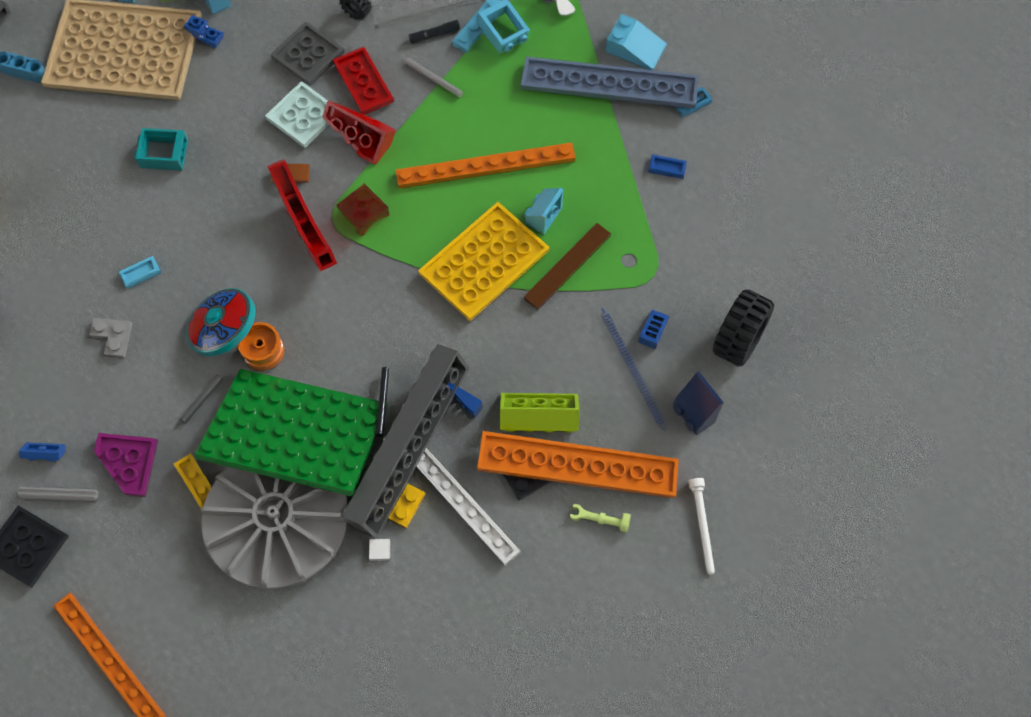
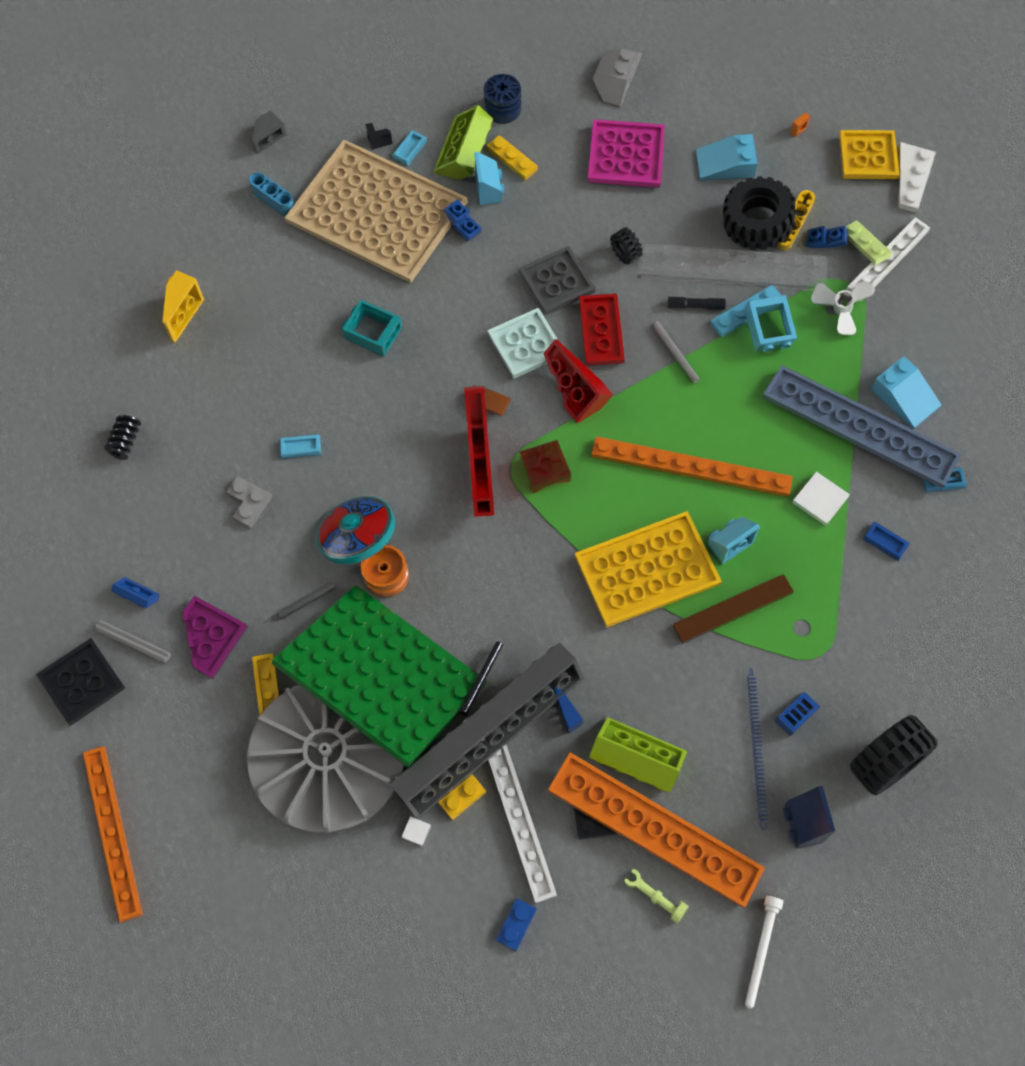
camera: 25 degrees right, 0 degrees up
(496, 589) = (516, 924): none -> blue plate
(602, 152) = (821, 498): none -> white tile

